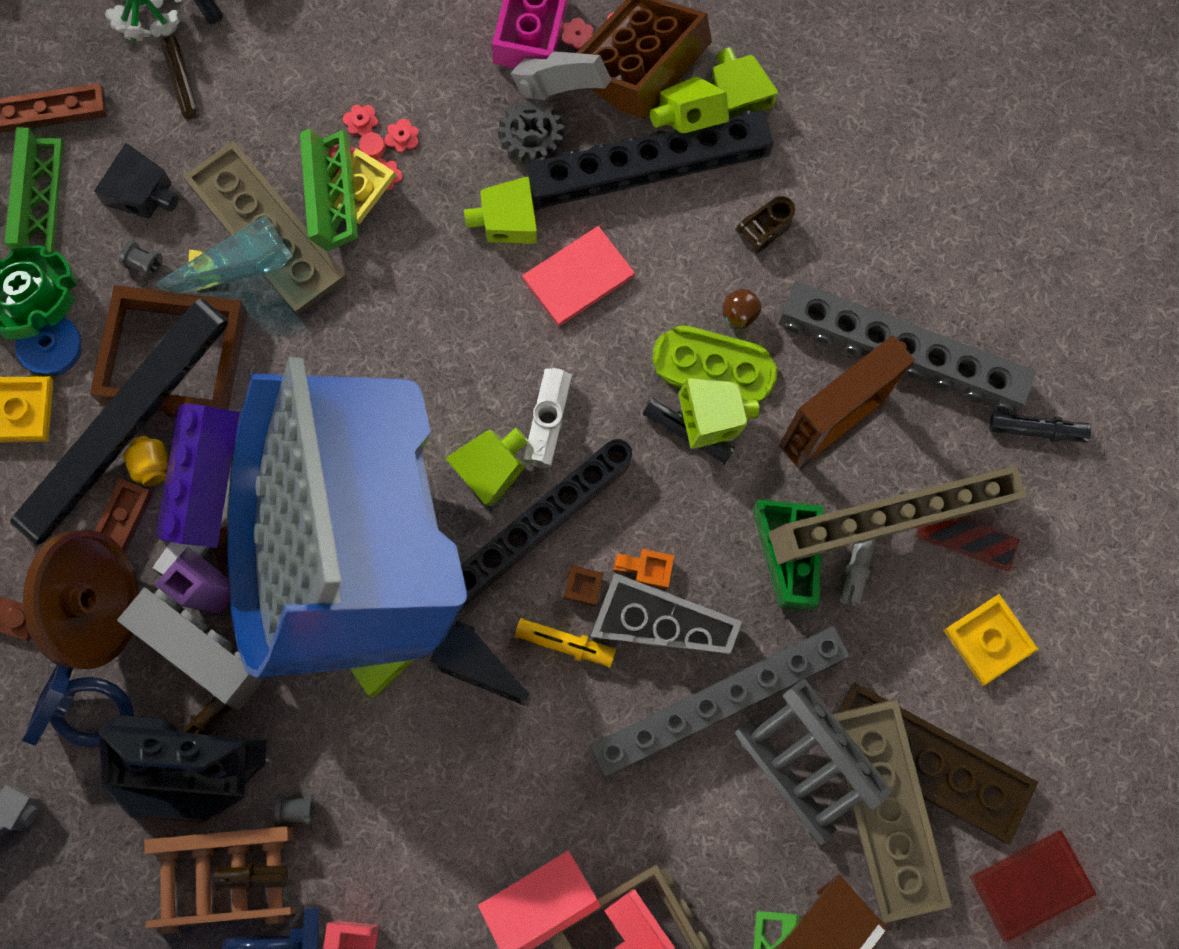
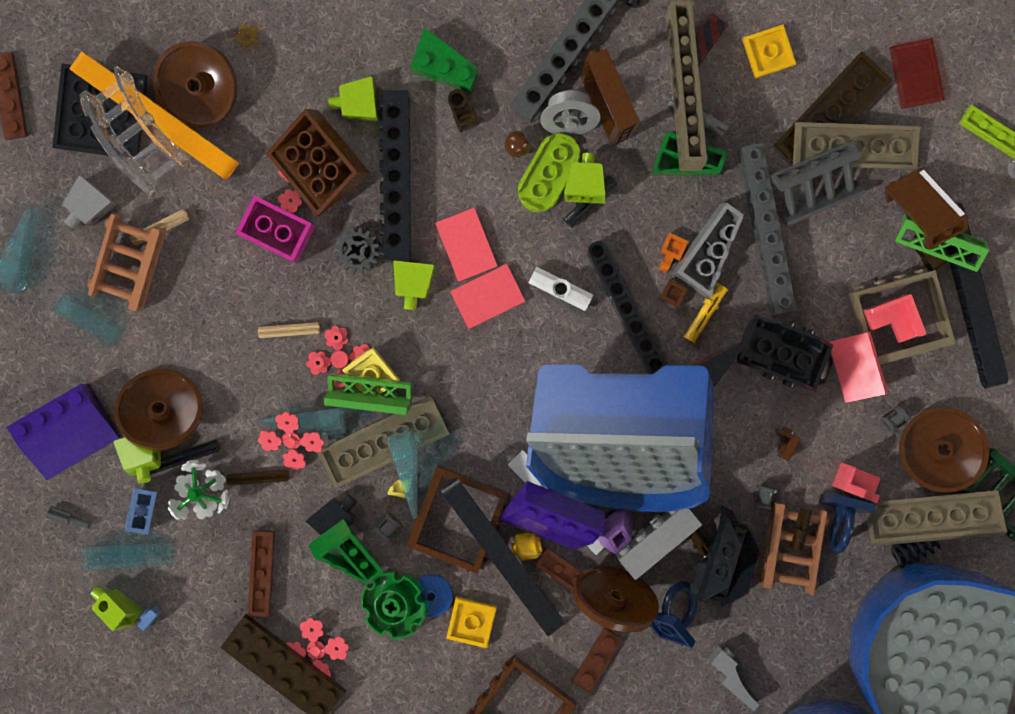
camera: 65 degrees left, 15 degrees up
(23, 188) = (320, 595): bright green fence -> none
(88, 203) = (346, 551): none -> green wedge
(241, 103) = (291, 440): none -> coral plant
(274, 137) = (325, 422): none -> clear light blue slope
(382, 822) = (787, 447): none -> reddish brown bracket
(397, 73) = (289, 330): none -> tan axle
(490, 464) = (583, 332): lime torso -> none
(511, 322) = (487, 296): none -> coral tile
(530, 784) = (786, 353): none -> black slope
(559, 74) = (325, 222): light grey slope -> none
(691, 106) = (369, 138): lime torso -> none
(805, 361) = (570, 113): none -> light grey wheel
(823, 180) = (442, 64): none -> green wedge

